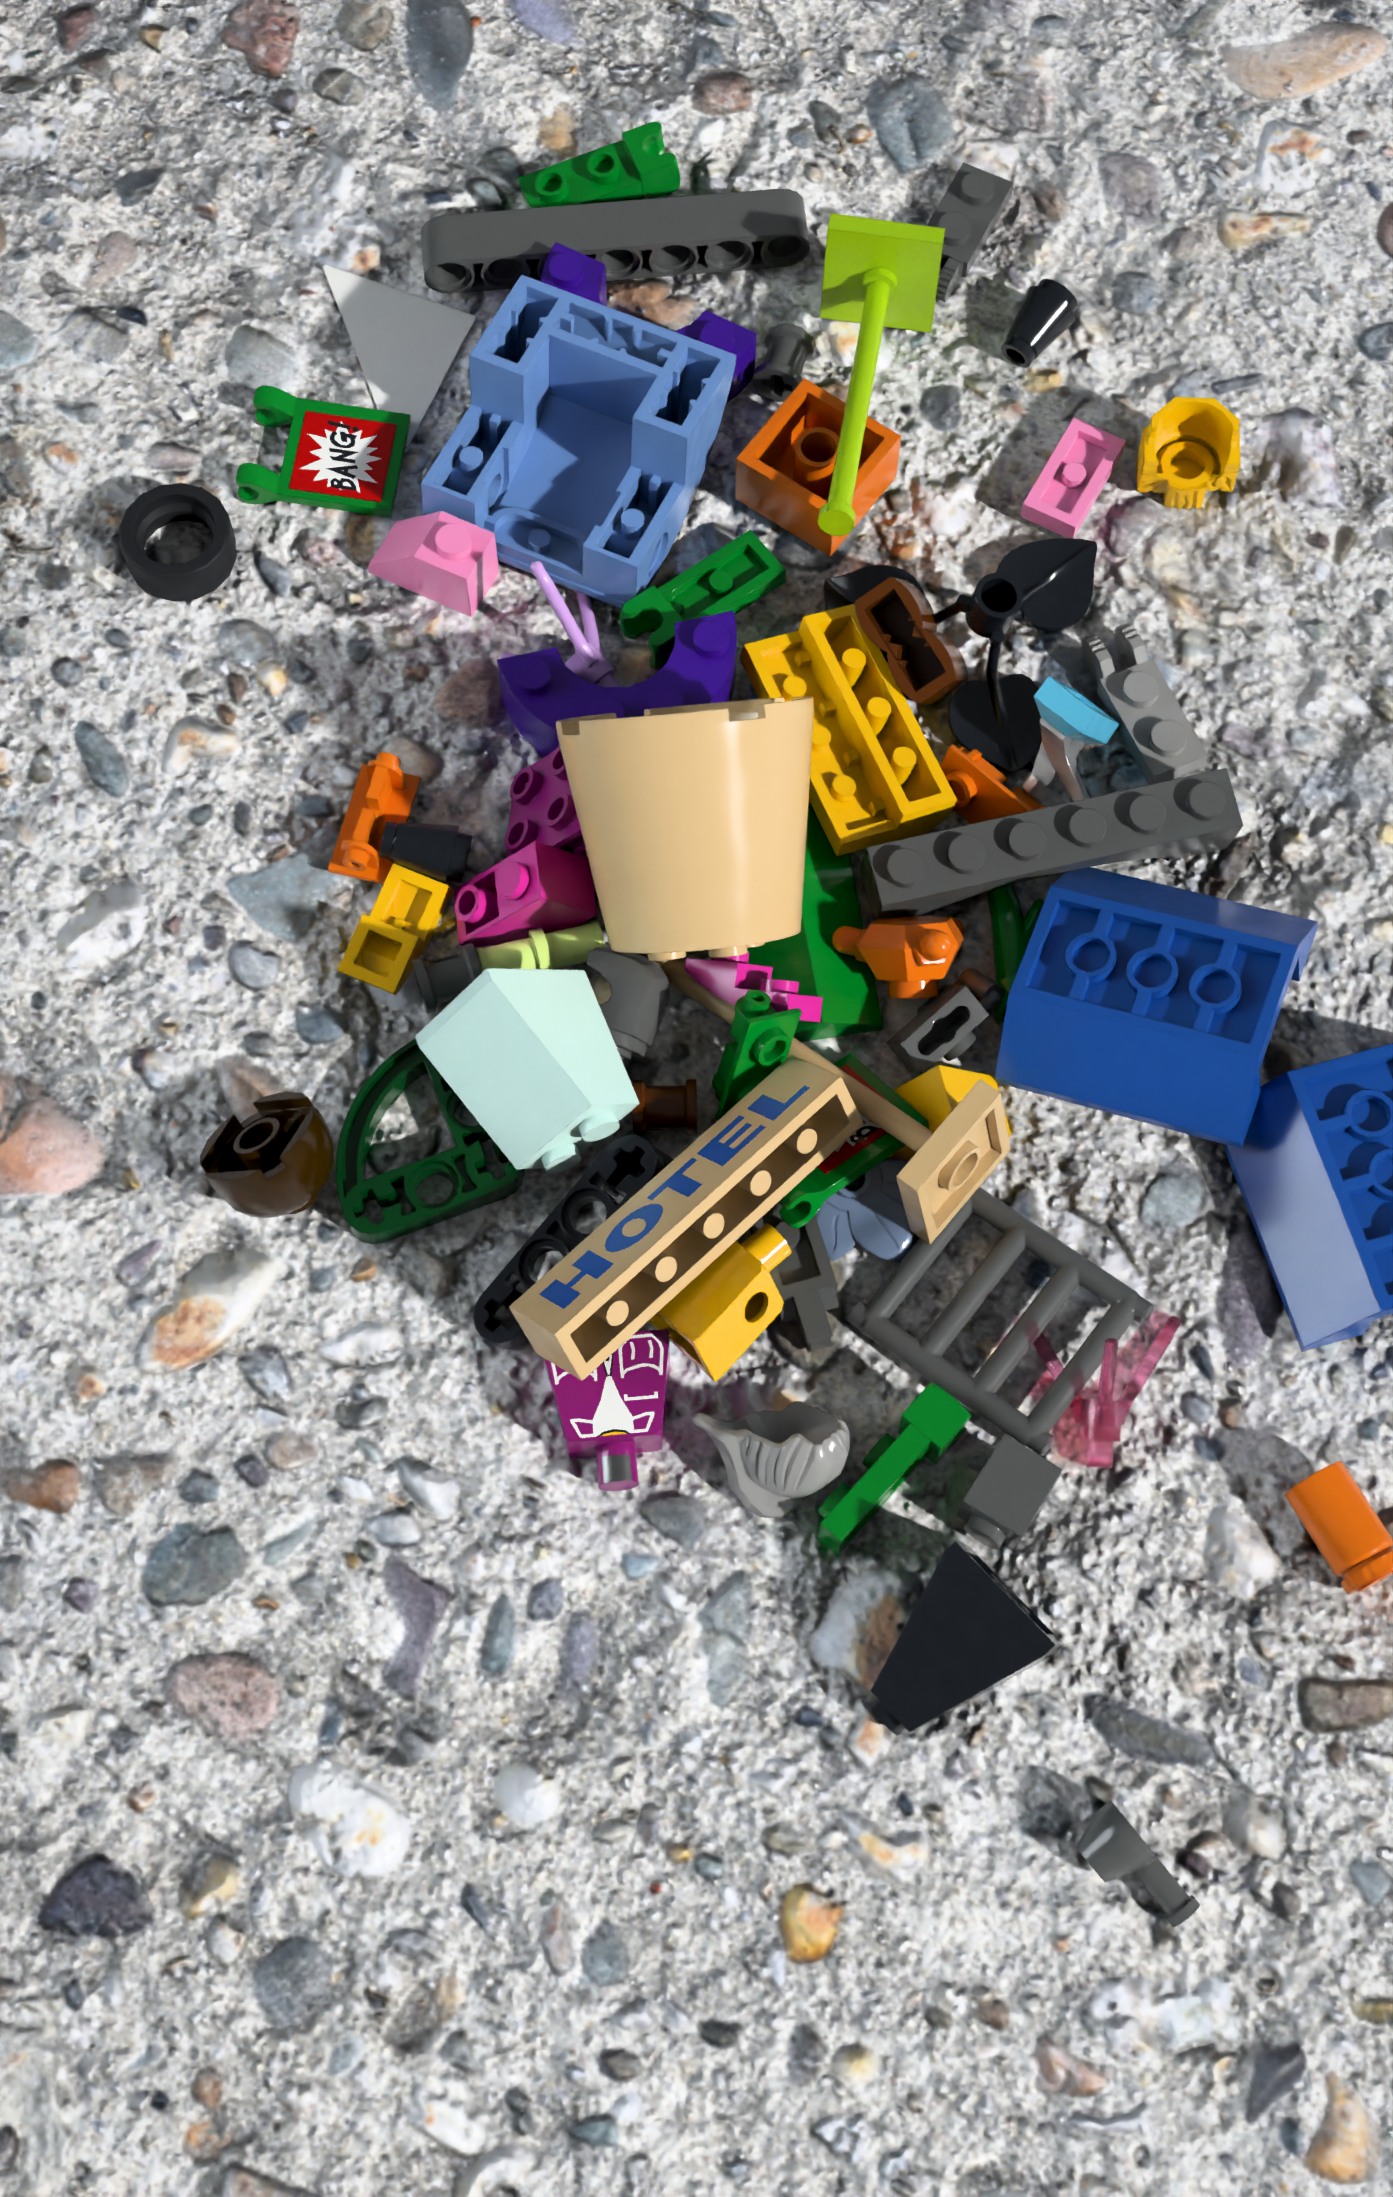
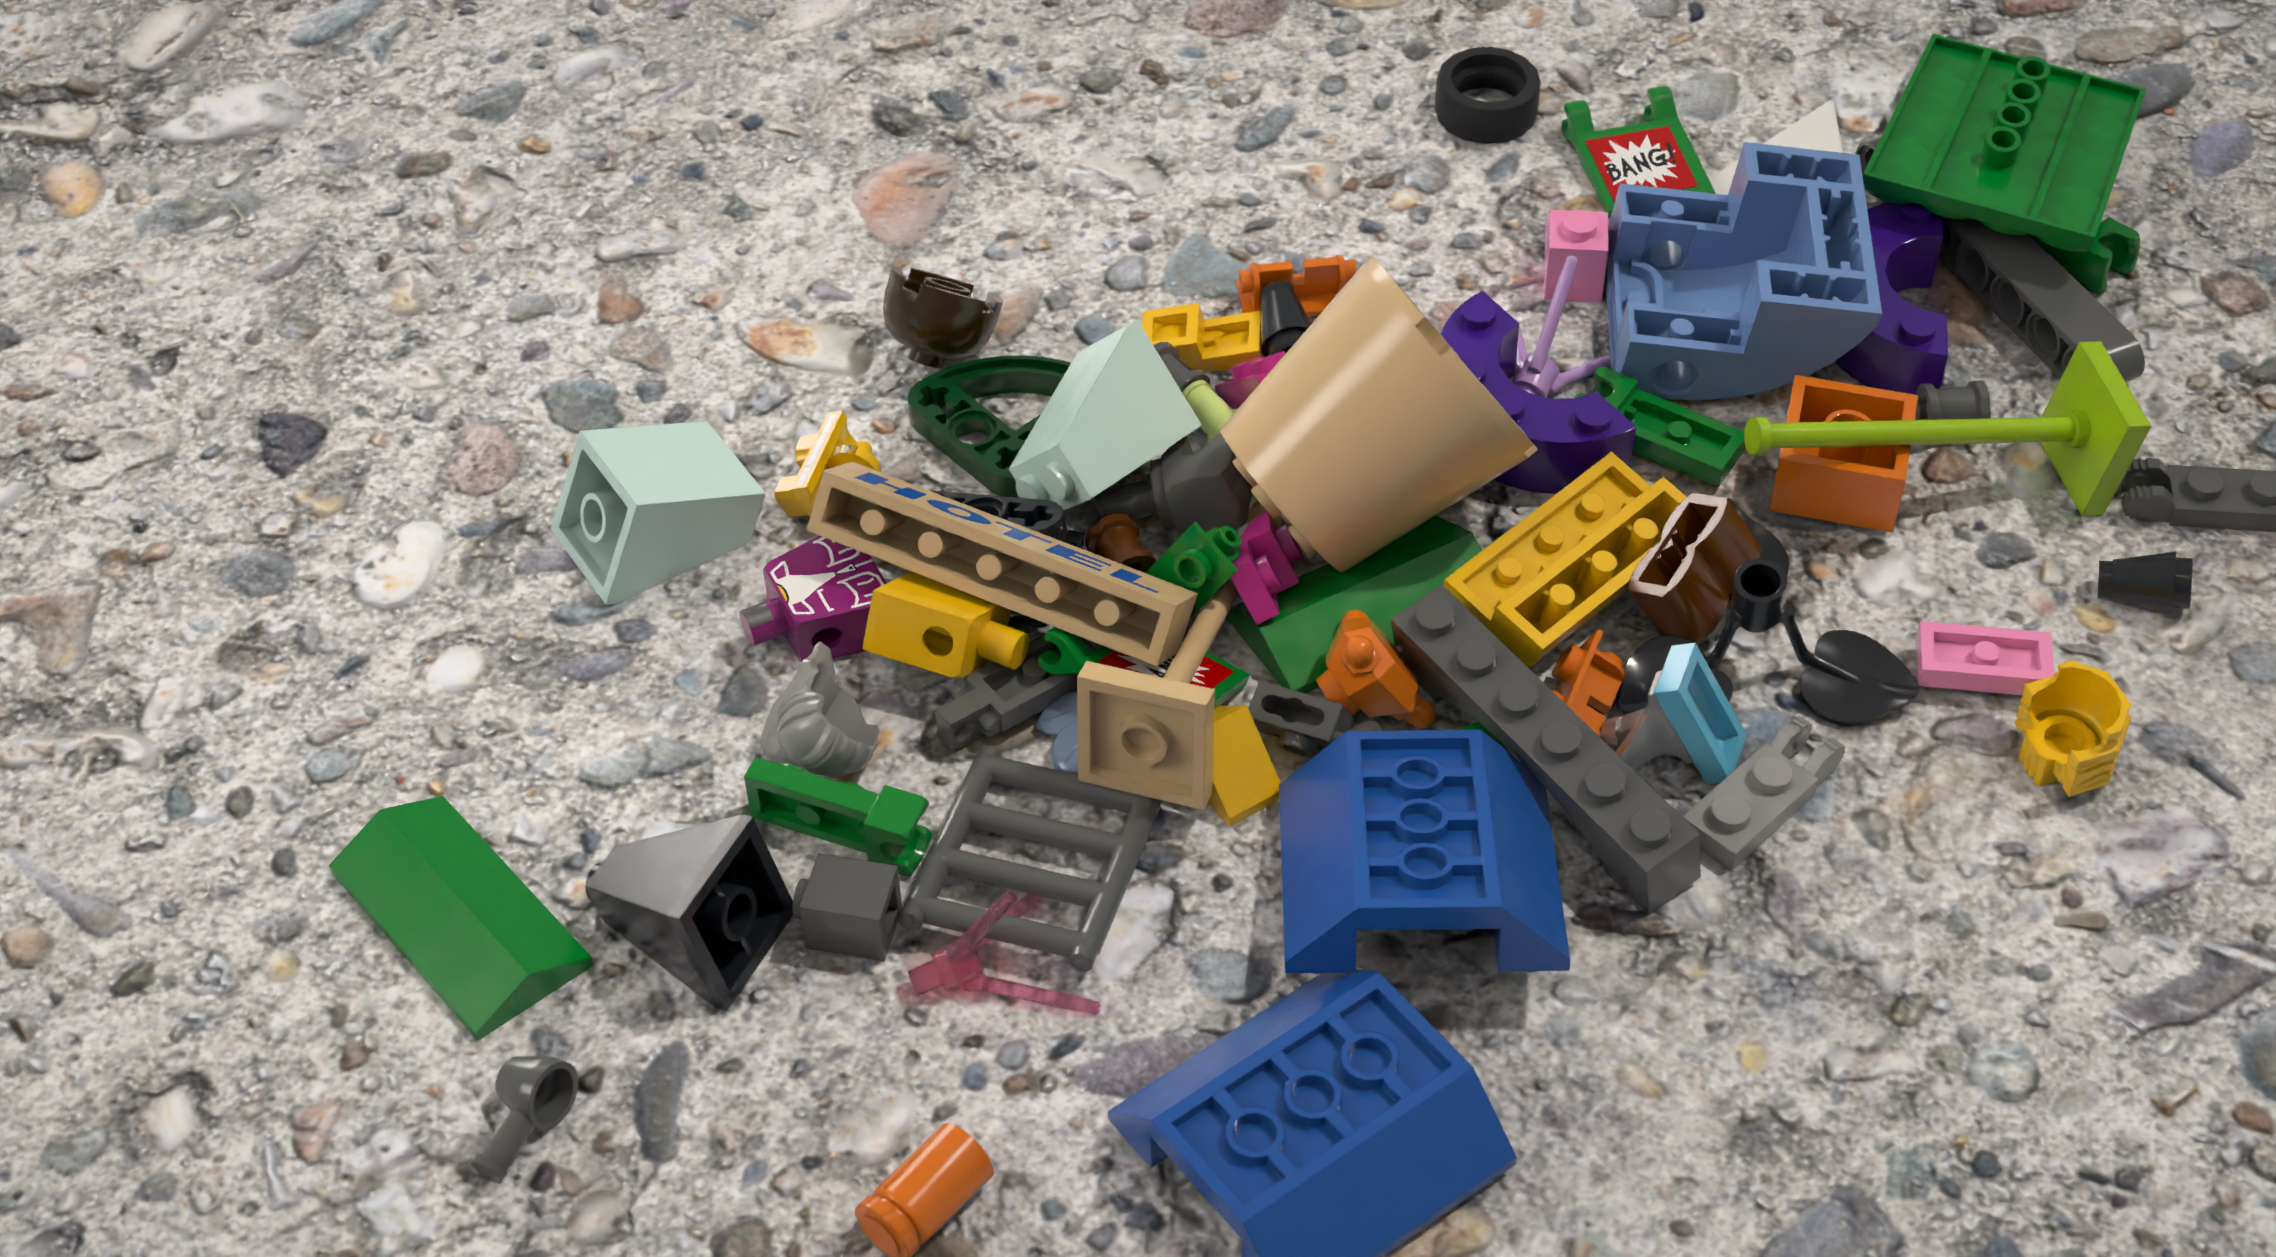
camera: 70 degrees right, 20 degrees down
(414, 1327) = (817, 453): none -> yellow hips
(414, 1529) = (652, 505): none -> light aqua slope
(495, 157) = (2006, 143): none -> green piece
(861, 1868) = (458, 913): none -> green slope

